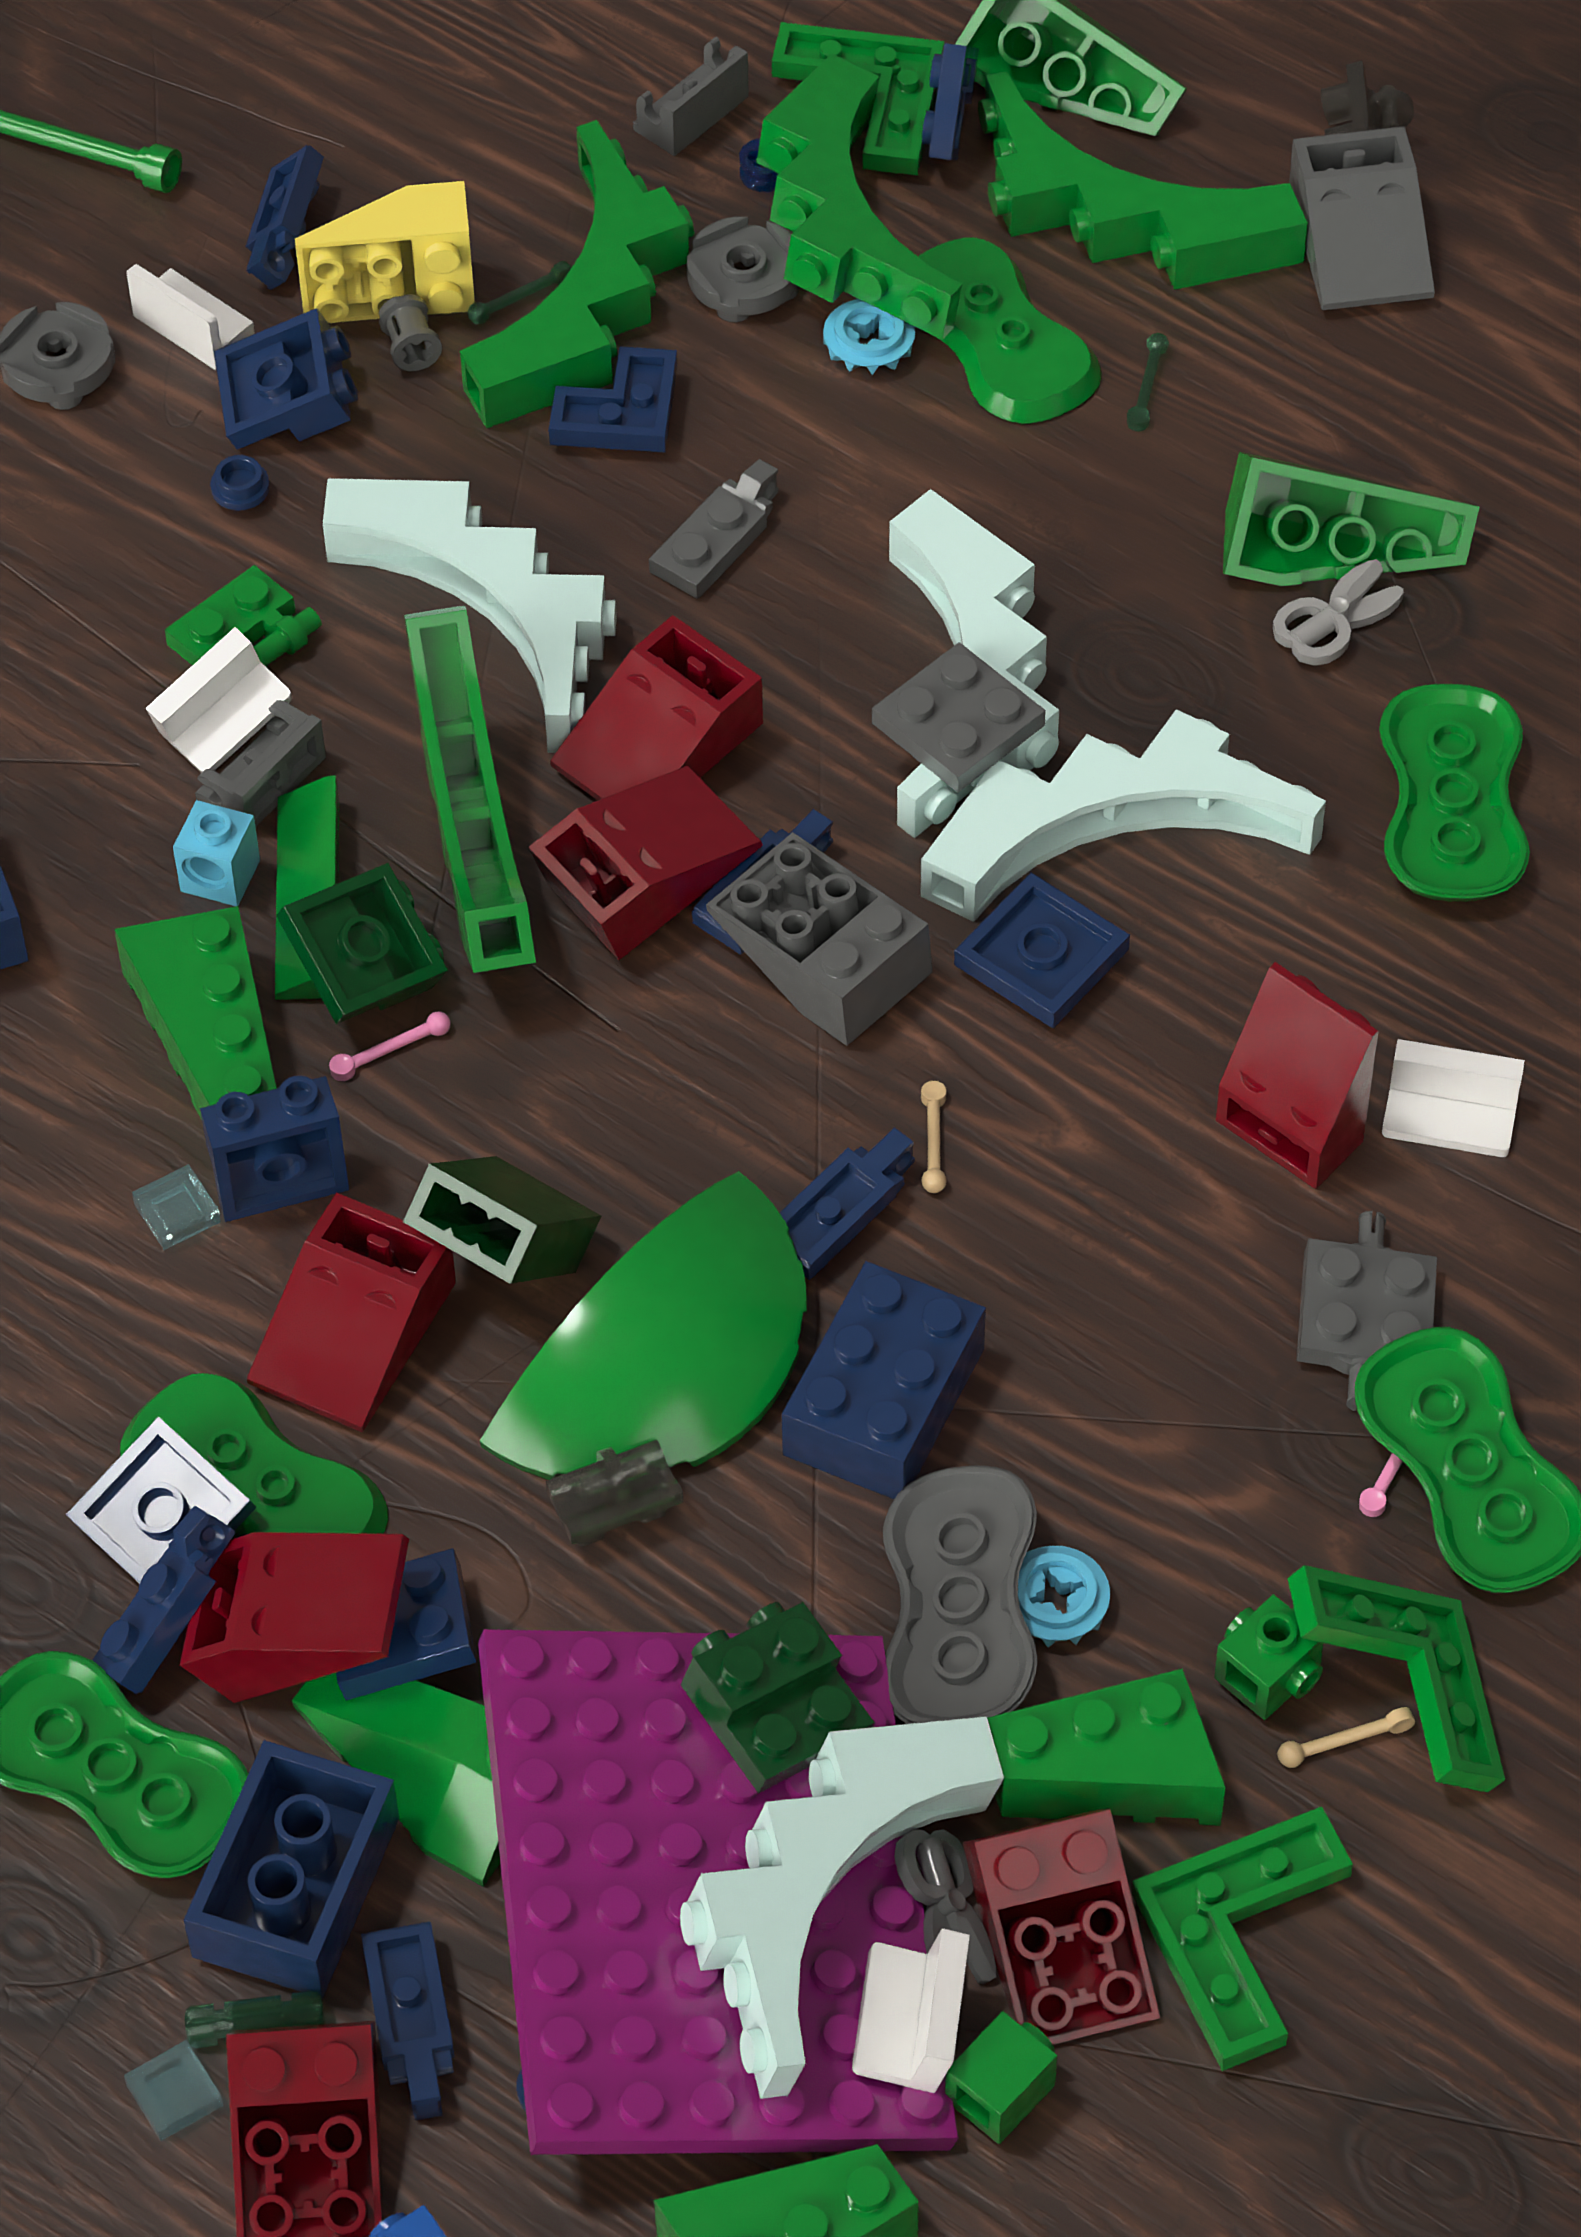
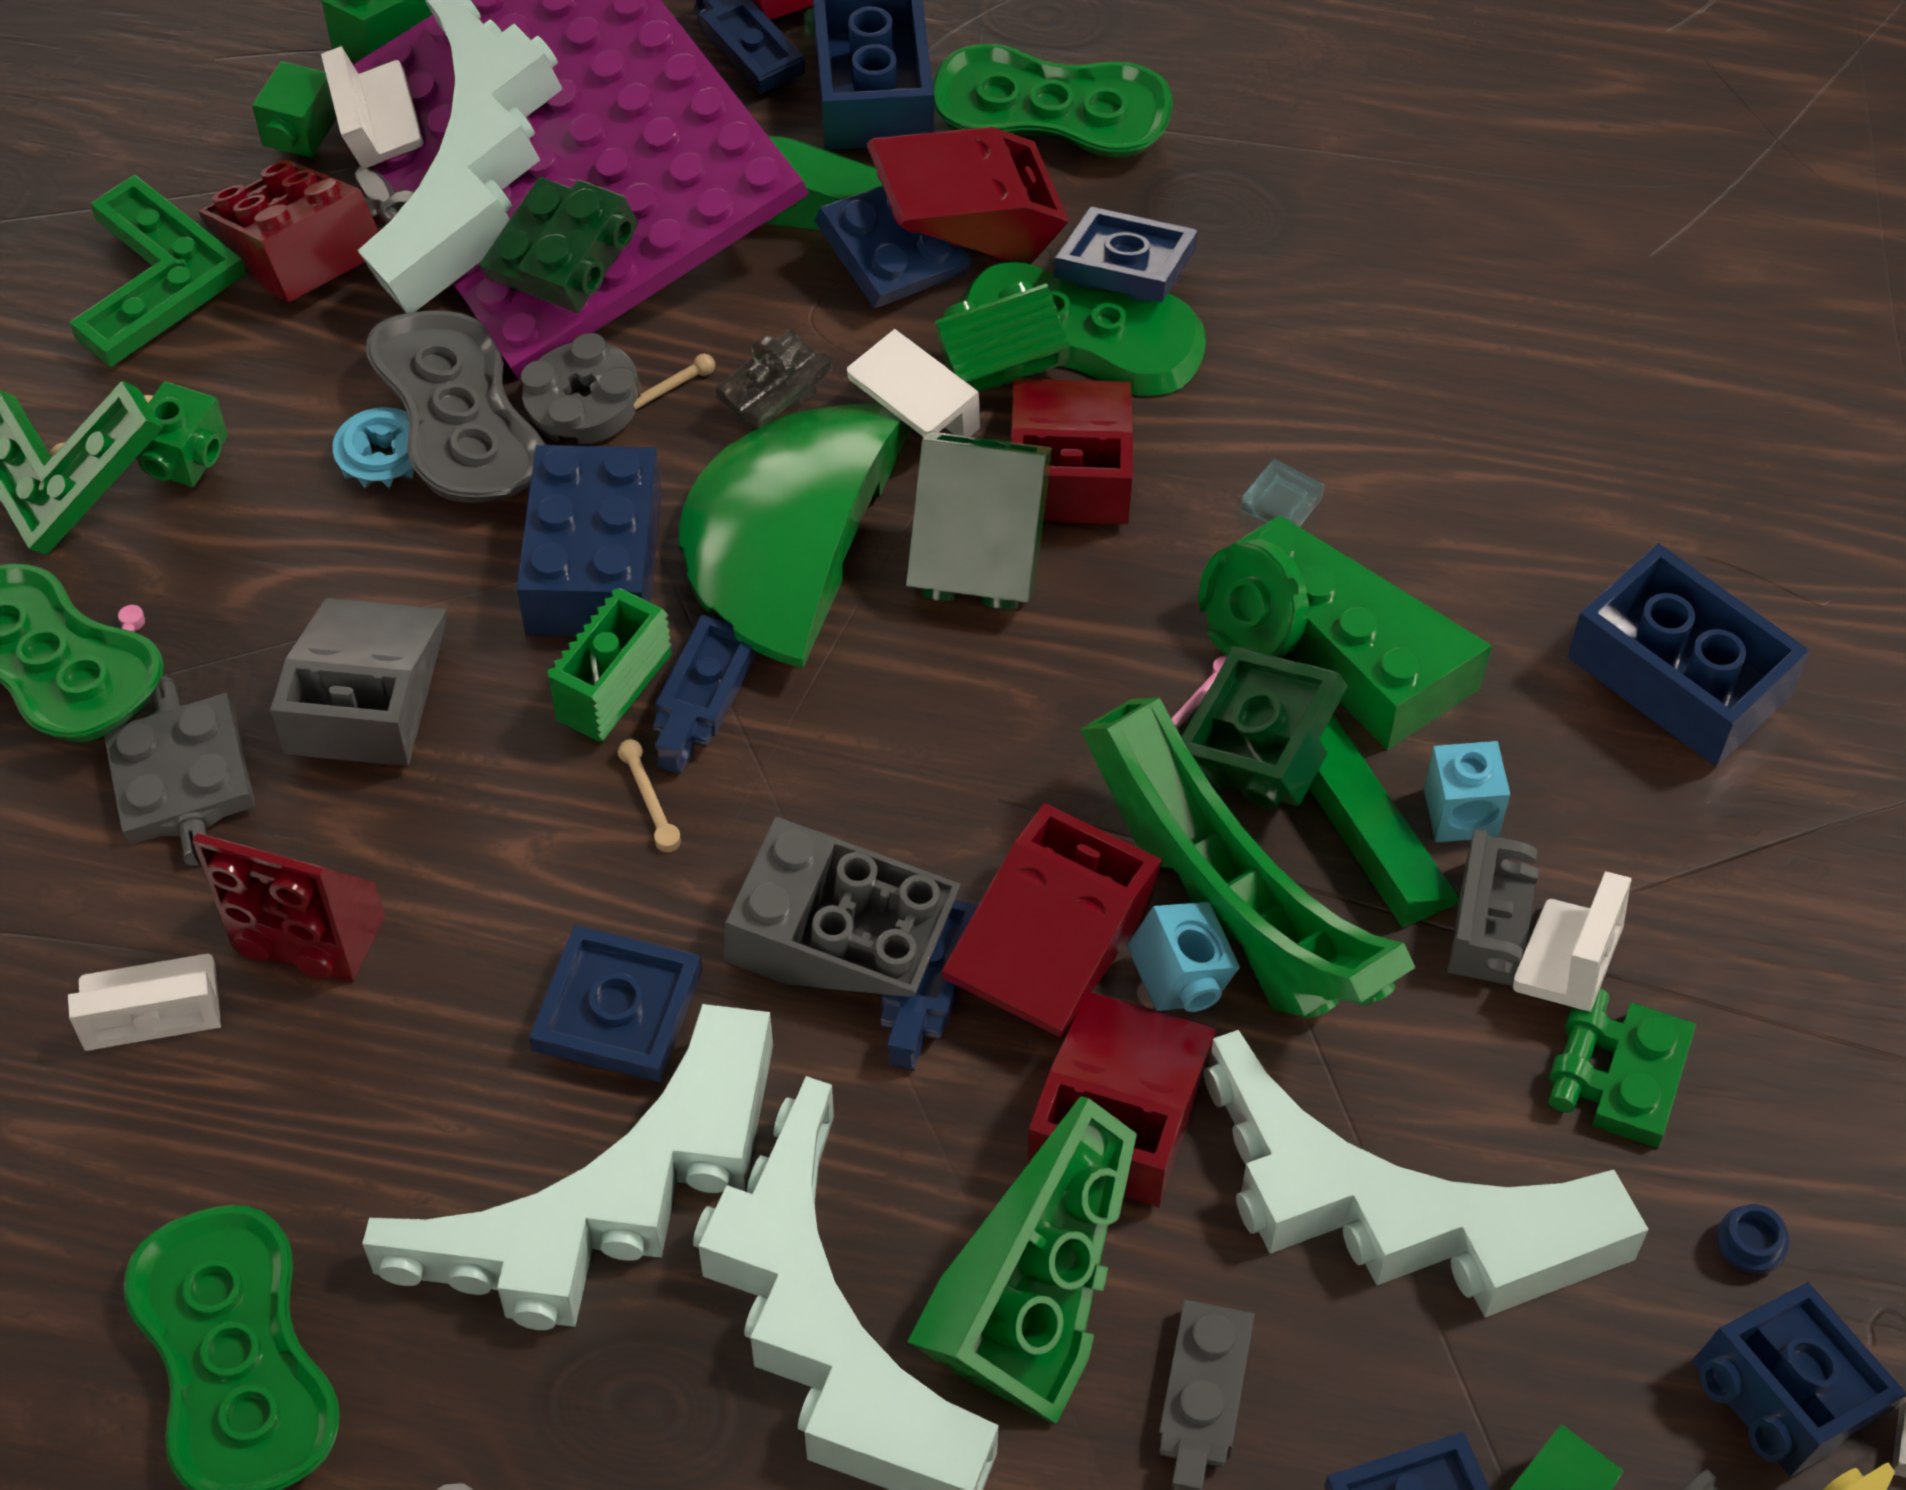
camera: 155 degrees right, 0 degrees up
(164, 1602) = (1076, 178): dark blue hinge -> none
(275, 1147) = (1214, 511): dark blue plate -> none
(285, 1050) = (1254, 599): none -> green tile
(358, 1440) = (1003, 337): none -> green brick
(477, 1425) = (916, 387): none -> white panel
(542, 796) = (1183, 956): none -> medium azure brick
(781, 1562) = (702, 365): none -> tan hinge
(828, 1547) = (578, 365): none -> dark grey plate
(835, 598) = (1025, 1283): none -> green wedge
(926, 1223) = (609, 664): none -> green brick
(958, 717) = (799, 1178): dark grey plate -> none
(1111, 1749) = (287, 330): green wedge -> none
(1162, 1317) = (358, 681): none -> dark grey slope

